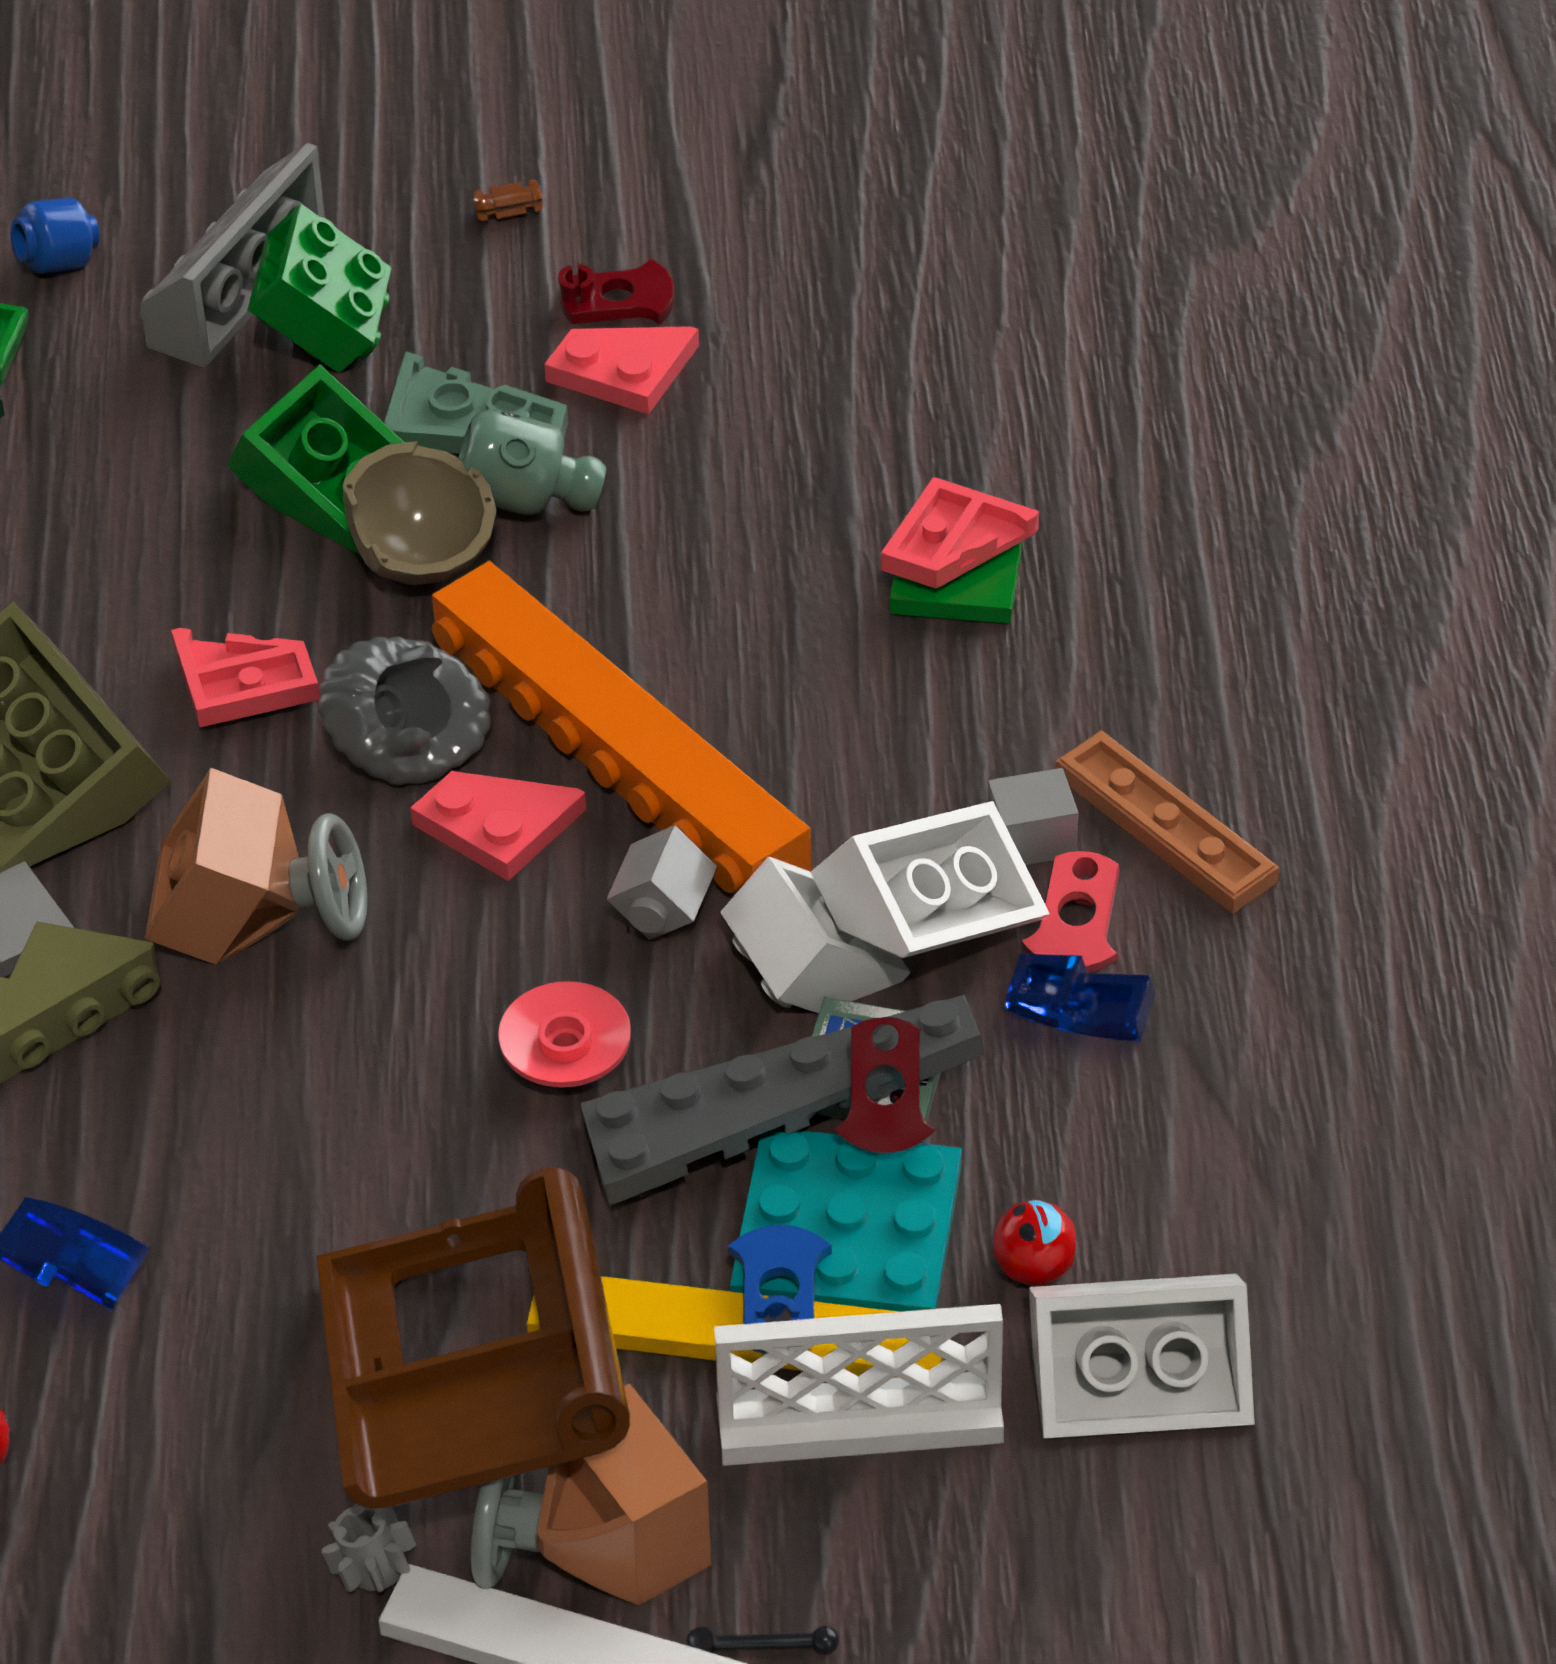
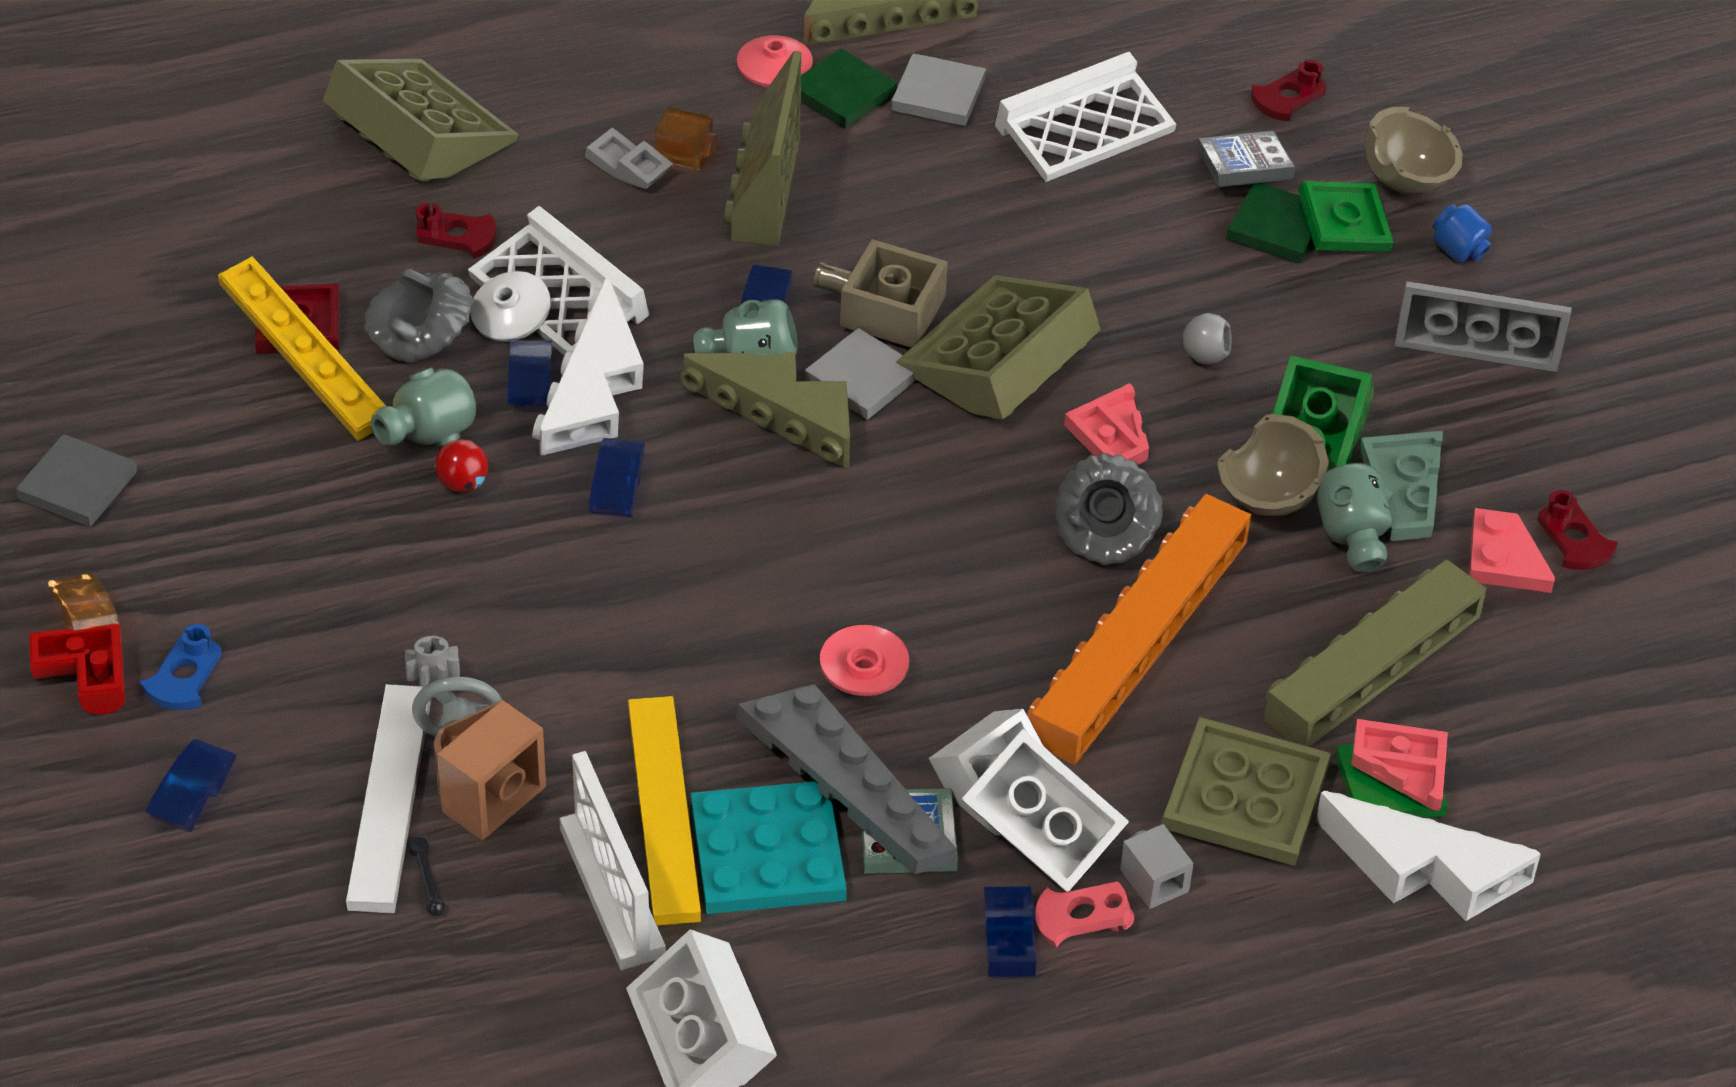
camera: 70 degrees right, 0 degrees up
(126, 530) = (1207, 338): none -> light grey piece
(236, 875) = (917, 462): nougat piece -> none
(320, 289) = (1465, 367): green brick -> none
(486, 1406) = (506, 669): reddish brown piece -> none
(497, 818) = (1046, 589): coral wing -> none
(507, 200) = (1633, 451): dark orange piece -> none
(662, 882) = (1005, 675): light grey brick -> none
(758, 522) = (1374, 654): none -> olive brick
(779, 1252) = (708, 797): blue piece -> none
(893, 1125) = (829, 825): dark red piece -> none
(933, 703) = (1246, 791): none -> olive plate
(1034, 1242) = (772, 941): red piece -> none
(1096, 569) = (1412, 851): none -> white slope
(1168, 822) = (1197, 951): nougat tile -> none

